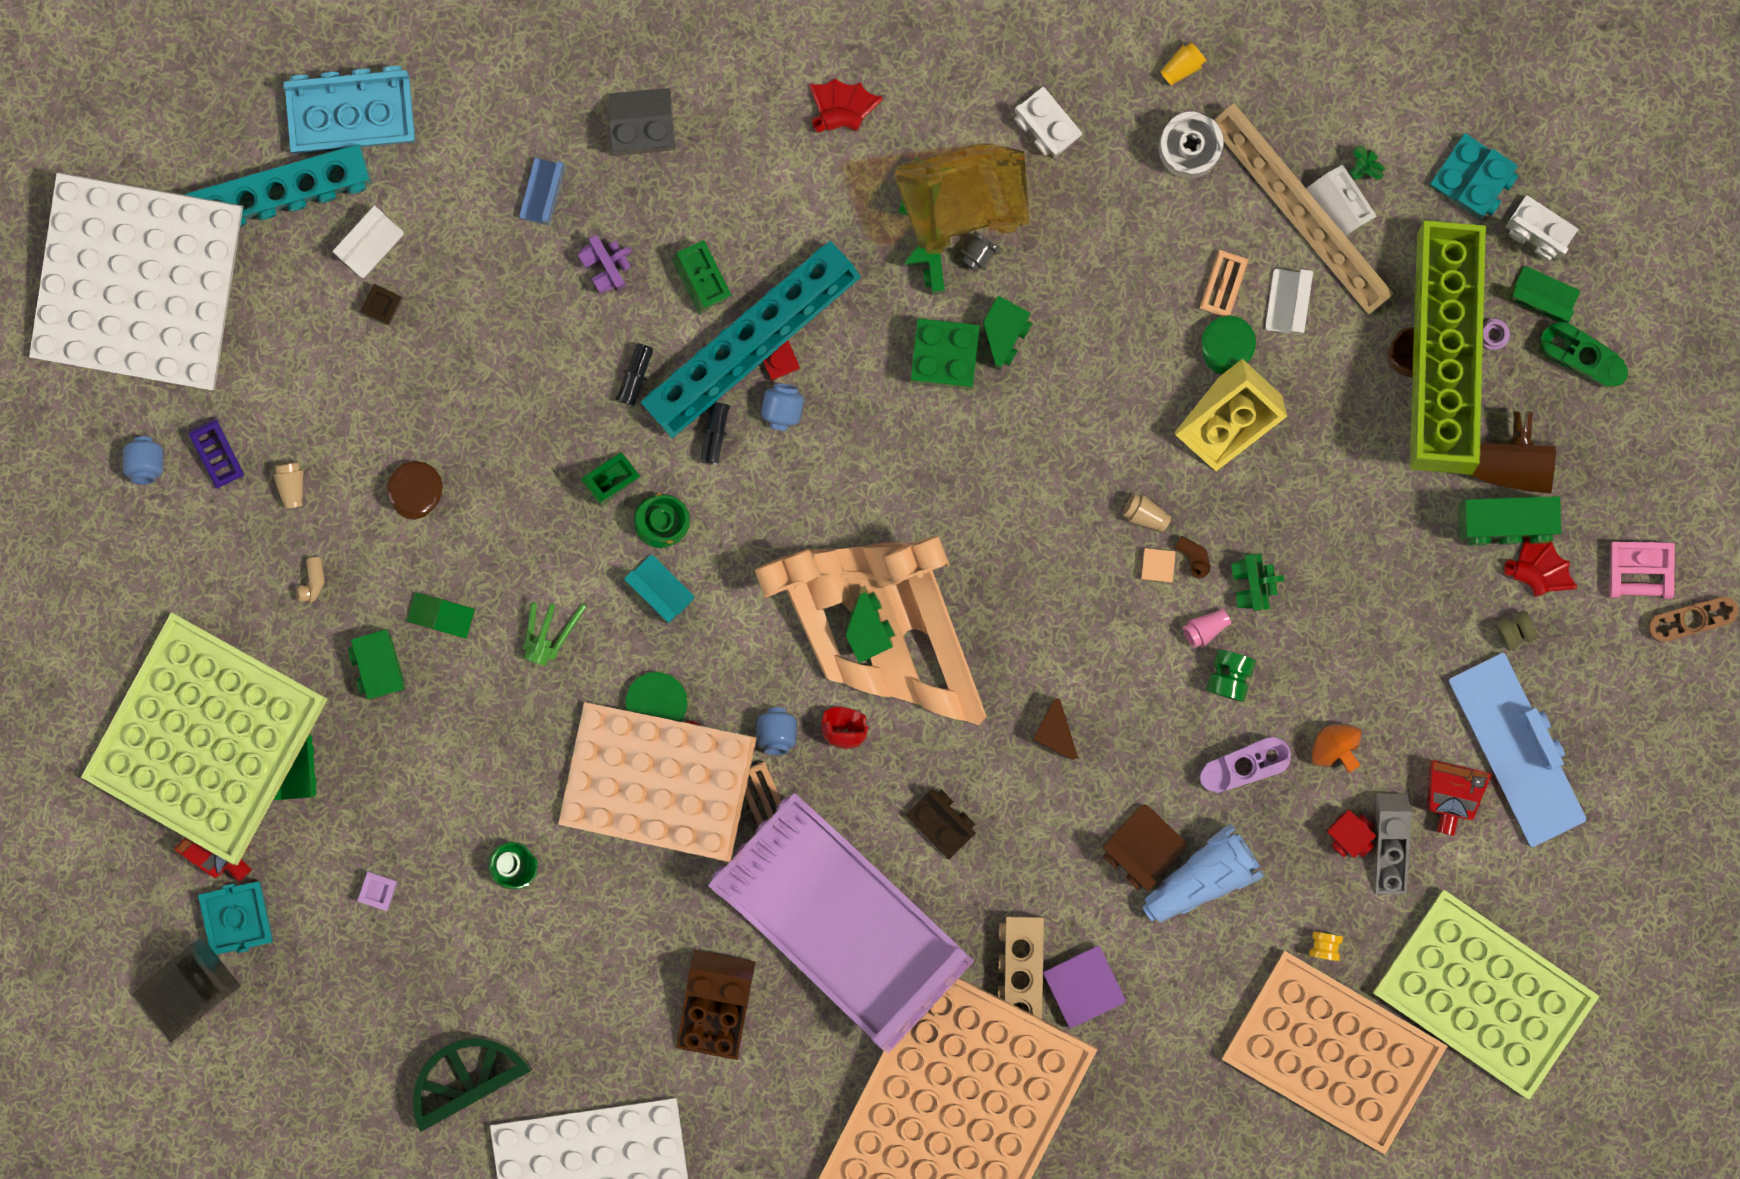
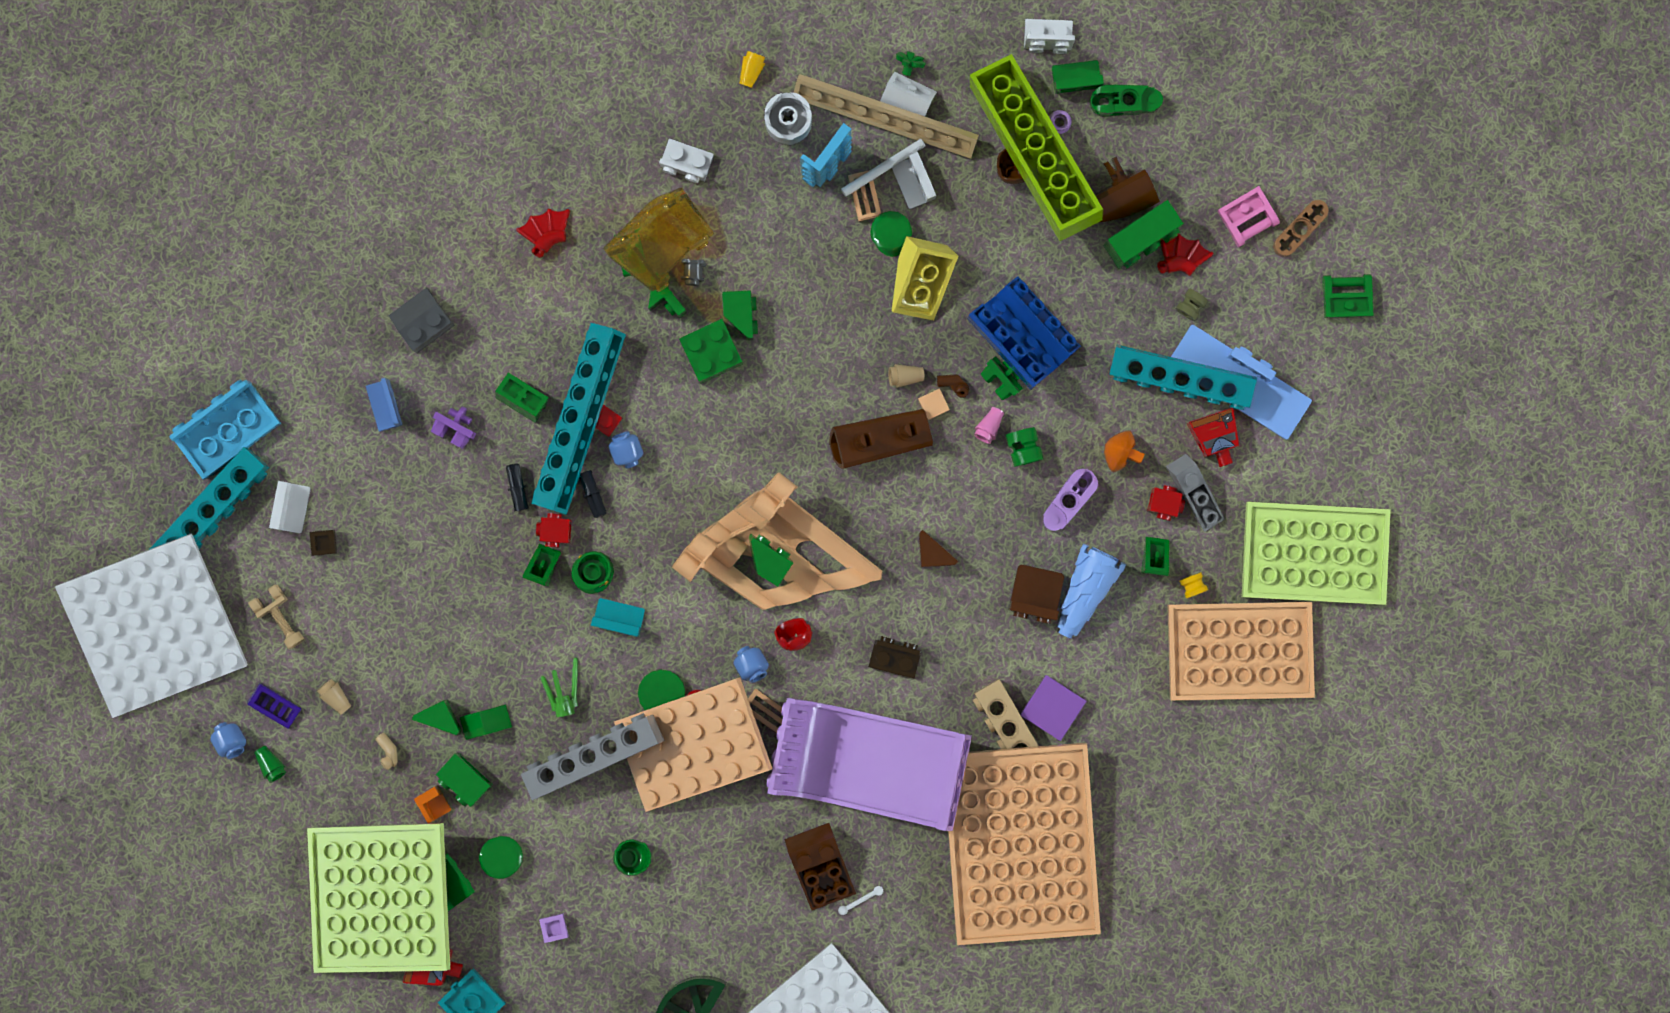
camera: 30 degrees left, 0 degrees up
(172, 516) = (269, 764): none -> green cone
(282, 390) = (292, 638): none -> tan bar
(326, 671) = (432, 804): none -> orange panel
(366, 776) = (500, 857): none -> green piece
(393, 578) = (439, 717): none -> green slope
(414, 489) = (418, 650): reddish brown piece -> none
(614, 740) = (539, 784): none -> light grey brick
(647, 447) = (554, 530): none -> red brick
(712, 1069) = (878, 890): none -> white hinge
(1074, 566) = (879, 438): none -> reddish brown piece
(1203, 223) = (826, 164): none -> medium azure bracket
(1261, 265) = (883, 167): none -> white bar
(1303, 888) = (1155, 557): none -> green slope
(1308, 547) = (1024, 332): none -> blue slope
(1453, 686) = (1240, 399): none -> teal brick
(1475, 177) = (985, 27): teal plate -> none
(1694, 737) = (1348, 304): none -> green plate

